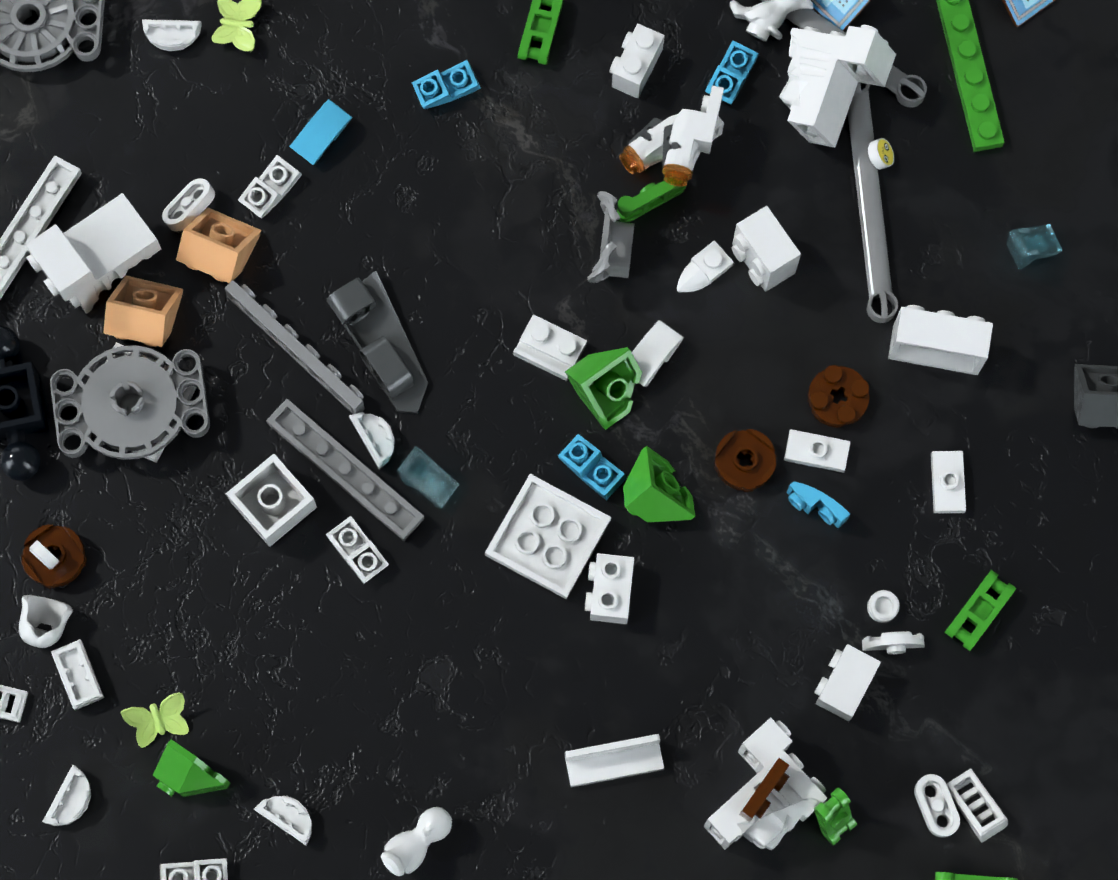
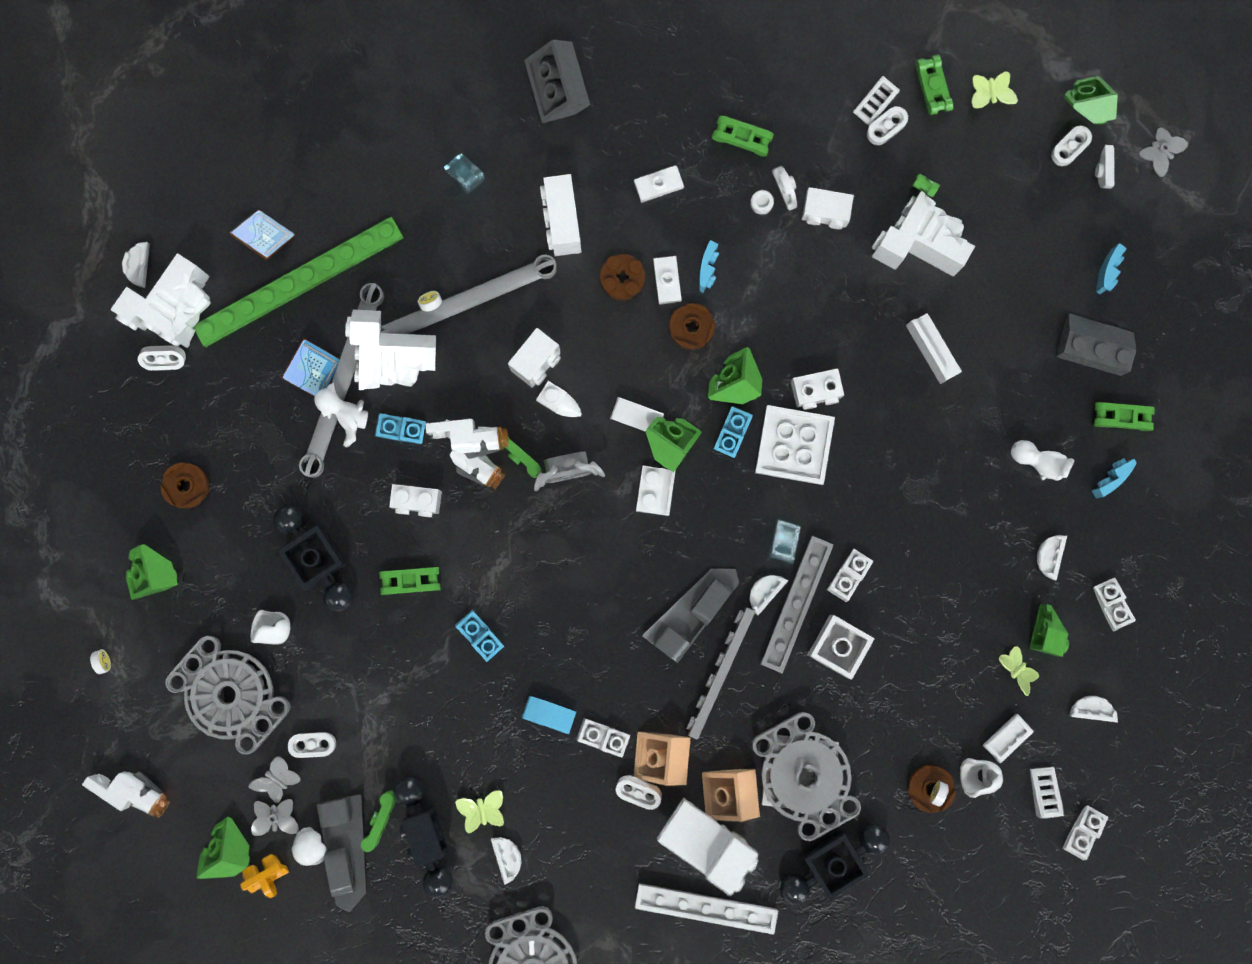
camera: 110 degrees left, 10 degrees up
(774, 780) = (942, 233): reddish brown plate -> none

